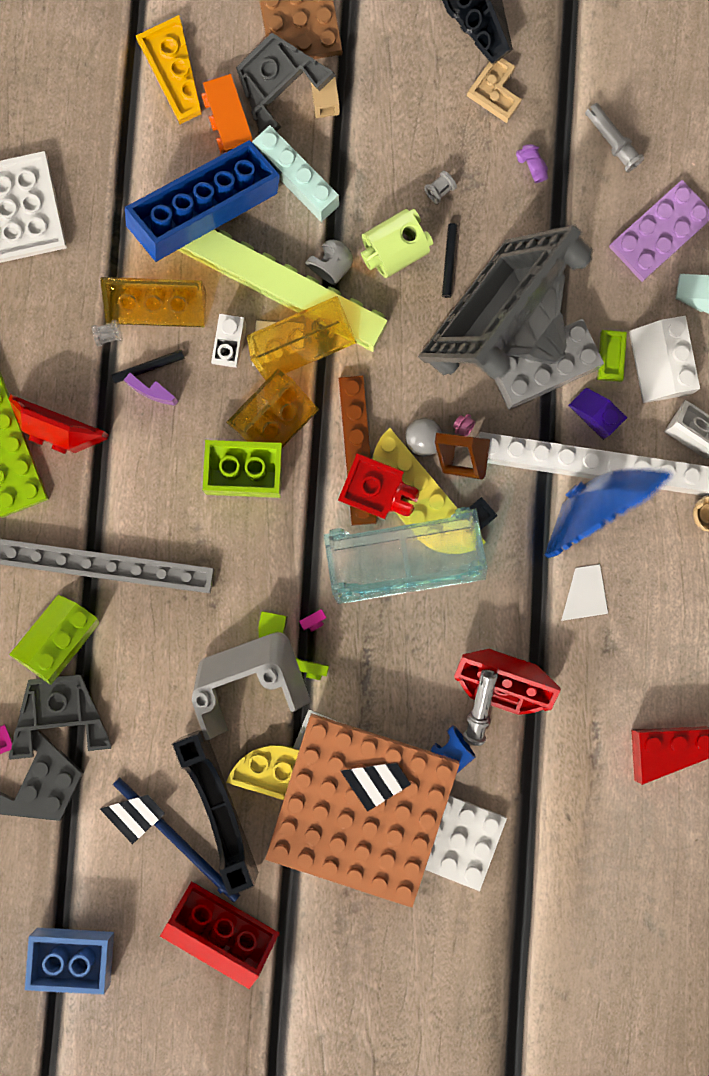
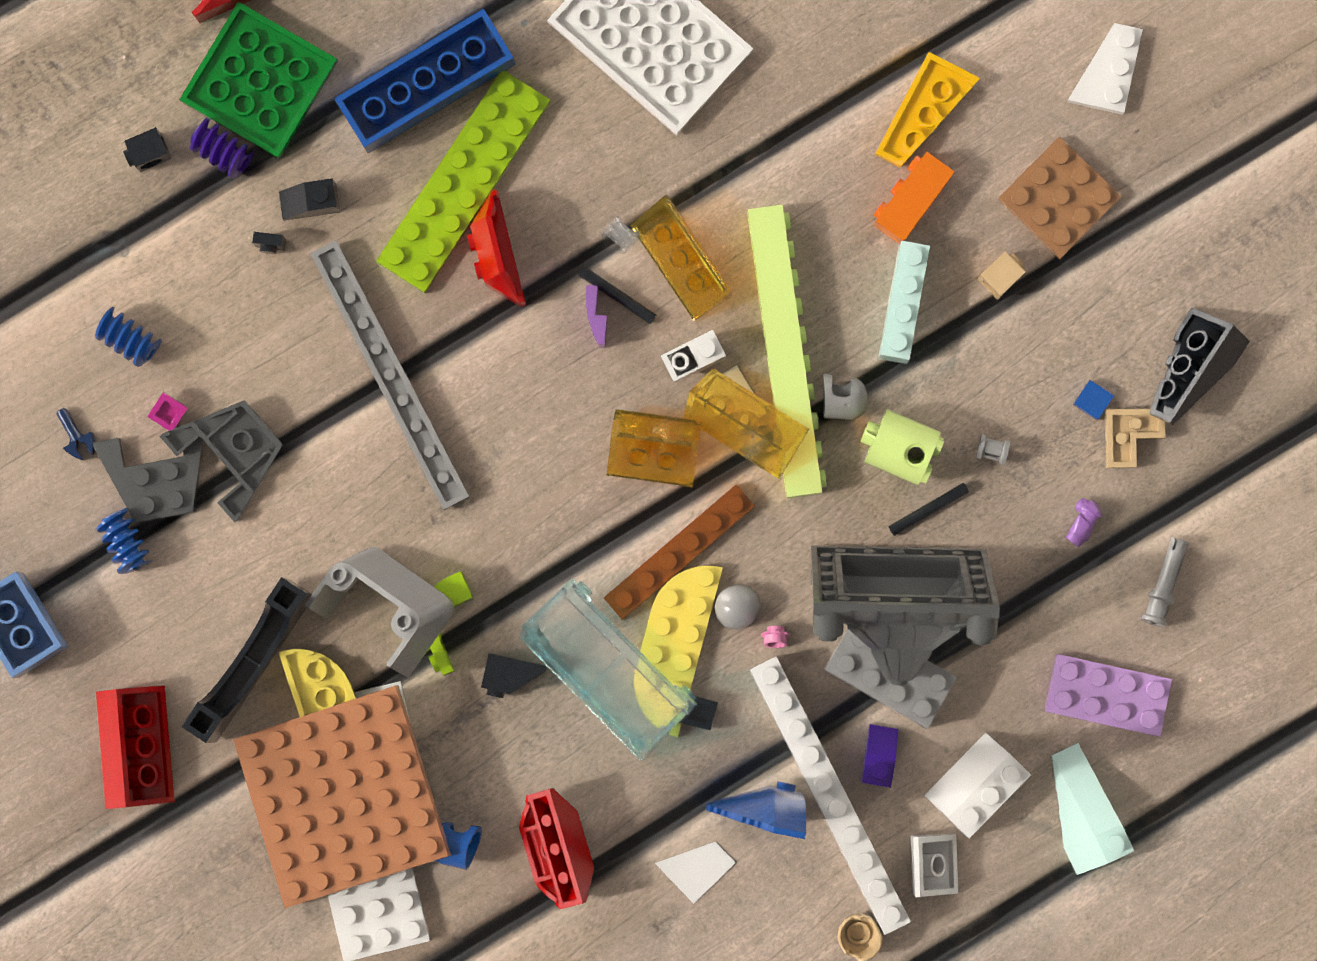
camera: 65 degrees right, 0 degrees up
(55, 638) = (299, 396): lime slope -> none
(66, 840) = (123, 542): none -> blue piece
(134, 816) = (186, 588): sticker -> none
(180, 843) = (193, 643): dark blue bar -> none
(201, 200) = (808, 237): blue brick -> none
(242, 468) = (582, 457): lime slope -> none
(271, 70) = (987, 207): dark grey wing -> none
(313, 621) = (486, 626): dark pink plate -> none
(359, 629) = (508, 674): none -> black slope
(376, 783) = (376, 791): black sticker -> none
(377, 489) = (652, 597): red plate -> none
(454, 98) = (1093, 400): none -> blue tile
(478, 452) = (755, 665): reddish brown tile -> none
(479, 717) = (505, 846): light grey pin -> none
(612, 351) = (947, 732): lime tile -> none

